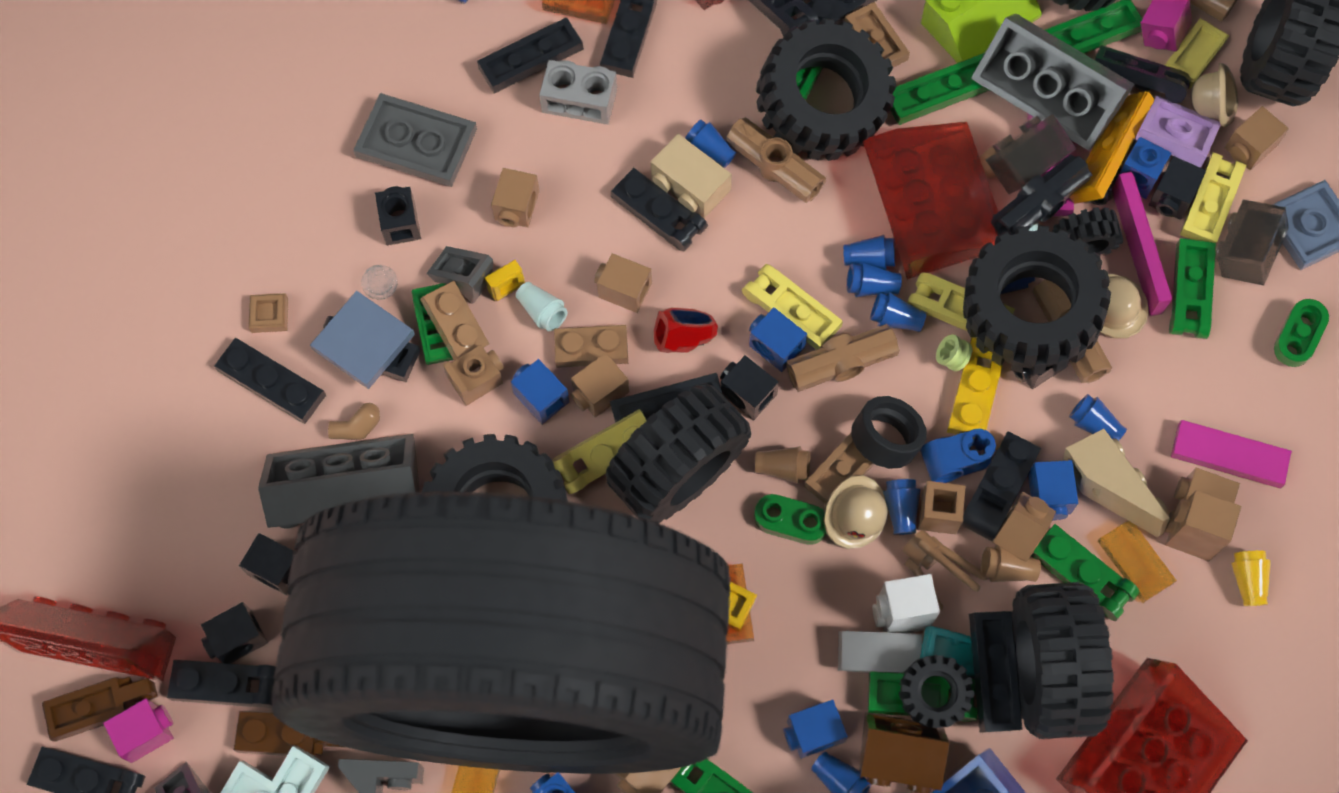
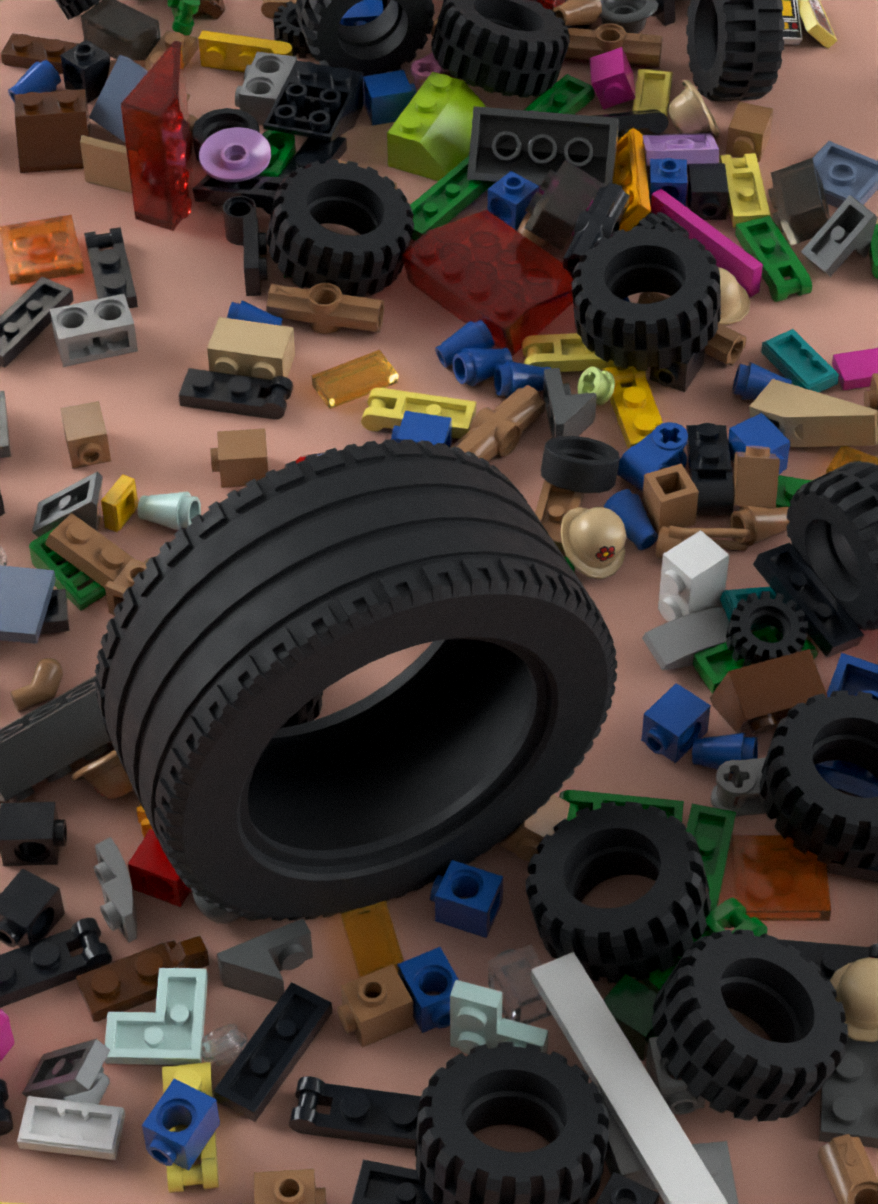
camera: 30 degrees left, 20 degrees down
(758, 45) = (243, 229): none -> black plate
(762, 242) = (354, 379): none -> clear yellow tile
(913, 371) = (566, 412): none -> dark grey slope
(995, 120) = (510, 198): none -> blue brick
(1146, 414) = (799, 362): none -> teal plate
(1269, 297) = (844, 232): none -> dark grey slope

